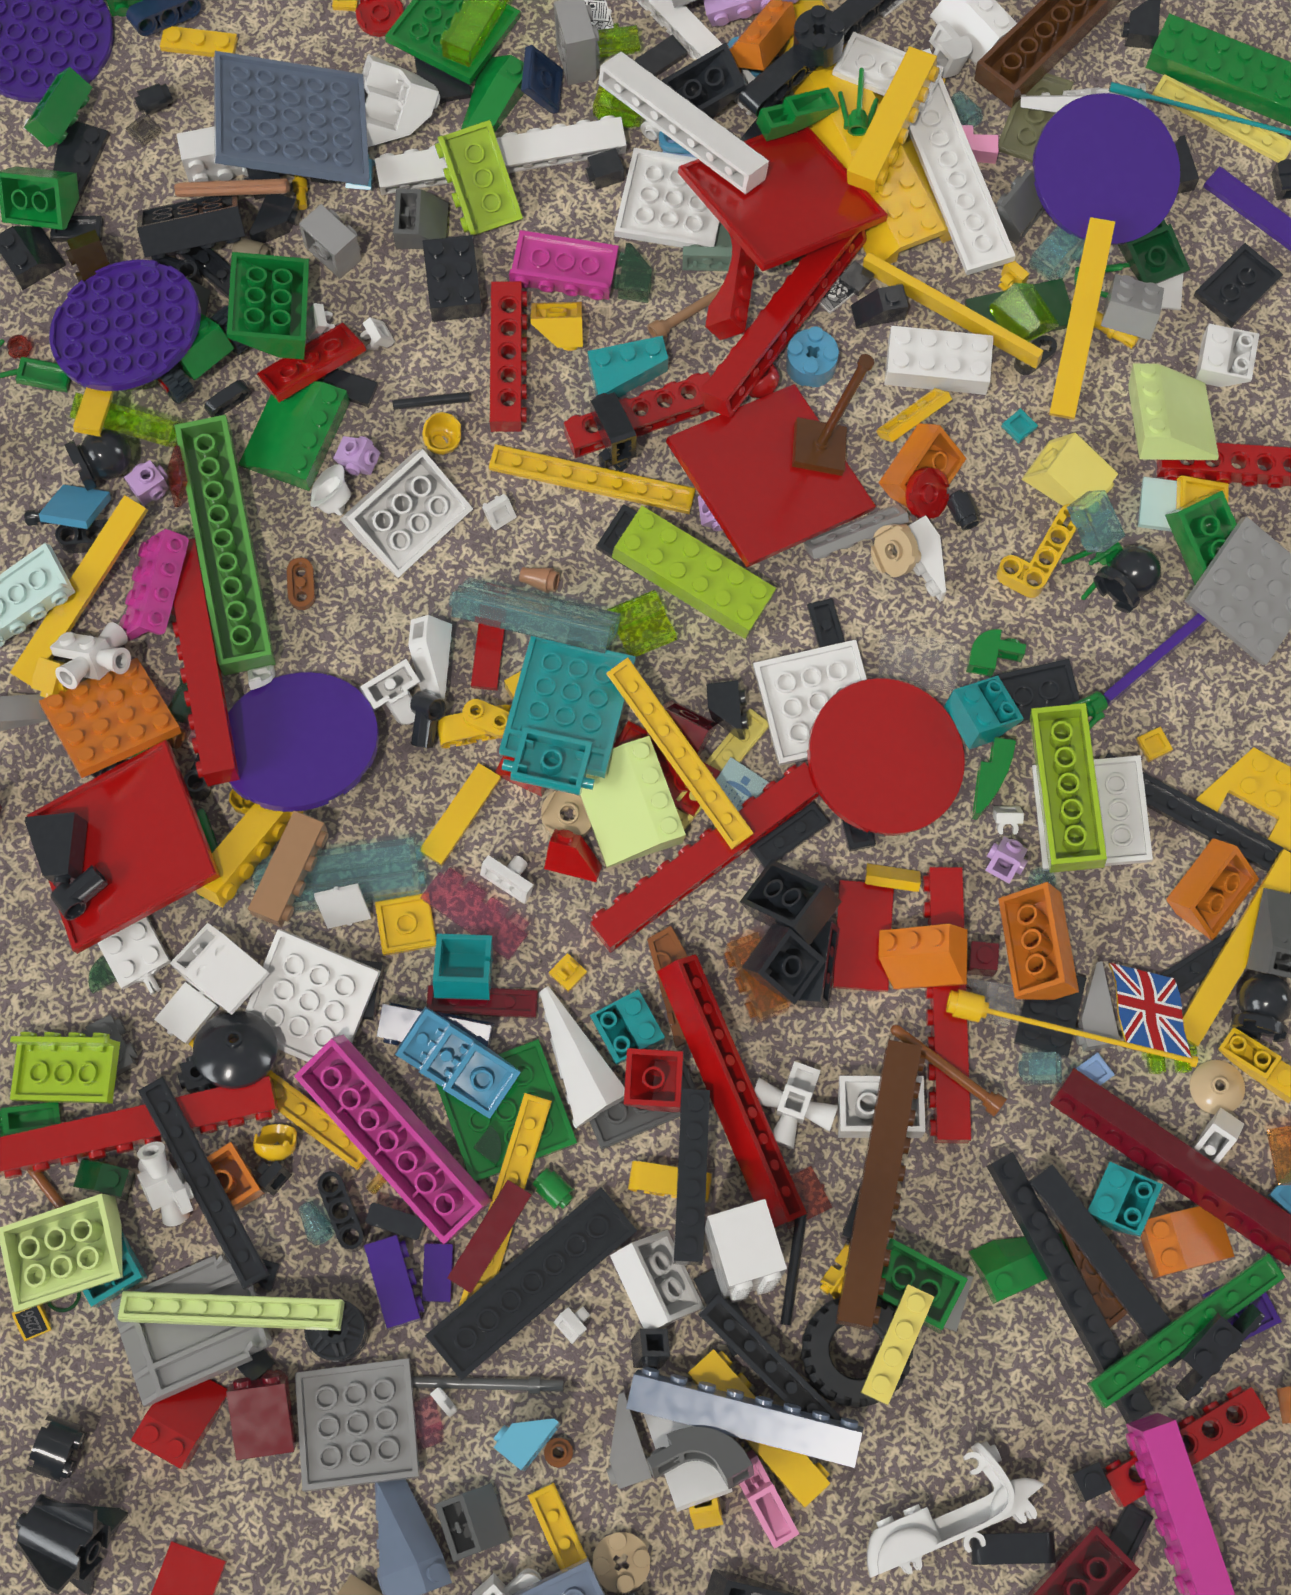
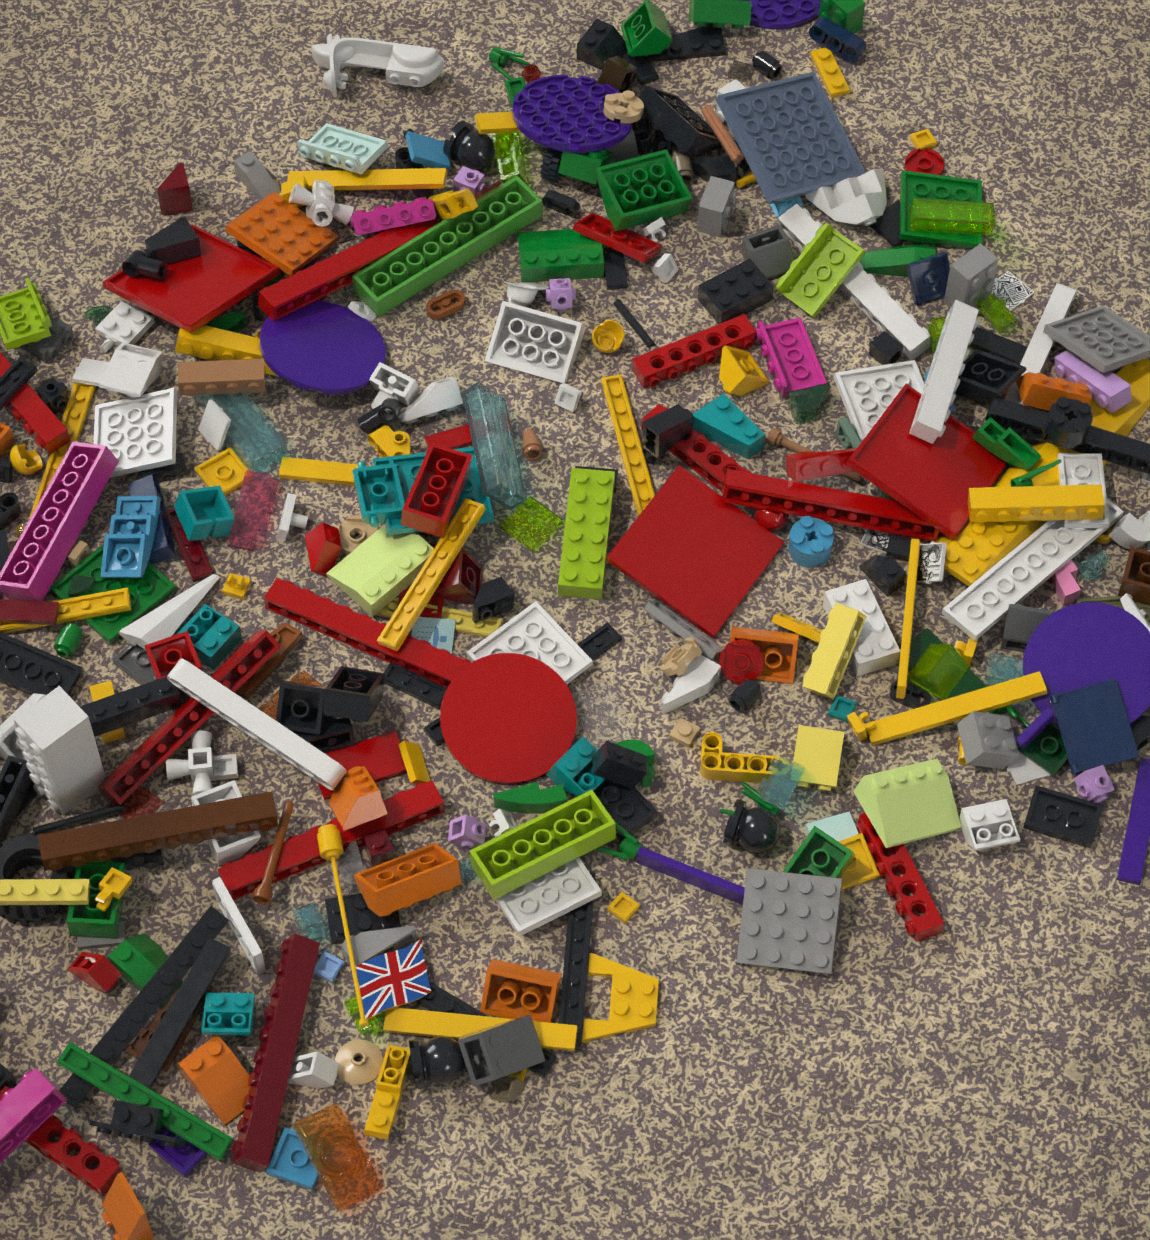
camera: 65 degrees right, 15 degrees down
(146, 256) = (623, 106): none -> tan plate
(185, 513) = (452, 204): none -> yellow slope
(235, 1063) = (77, 403): black dish -> none
(442, 1131) = (78, 553): none -> tan plate
(586, 697) = (436, 490): none -> red brick
(788, 1022) = (256, 724): none -> white beam
(821, 444) = (739, 572): reddish brown tile -> none
(901, 252) = (931, 562): none -> piece
(923, 1260) = (112, 885): none -> yellow plate
(966, 396) = (834, 651): none -> light yellow brick
(976, 590) = (684, 732): none -> tan plate
(996, 1324) = (95, 971): none -> red slope
(1008, 668) = (619, 764): none -> black brick
(1019, 1144) = (239, 926): none -> white tile
(1052, 420) = (858, 726): none -> yellow tile
(1143, 256) = (1035, 728): none -> dark purple tile
(1166, 202) = (1094, 726): none -> dark blue piece
(1221, 237) = (1094, 784): none -> lavender brick

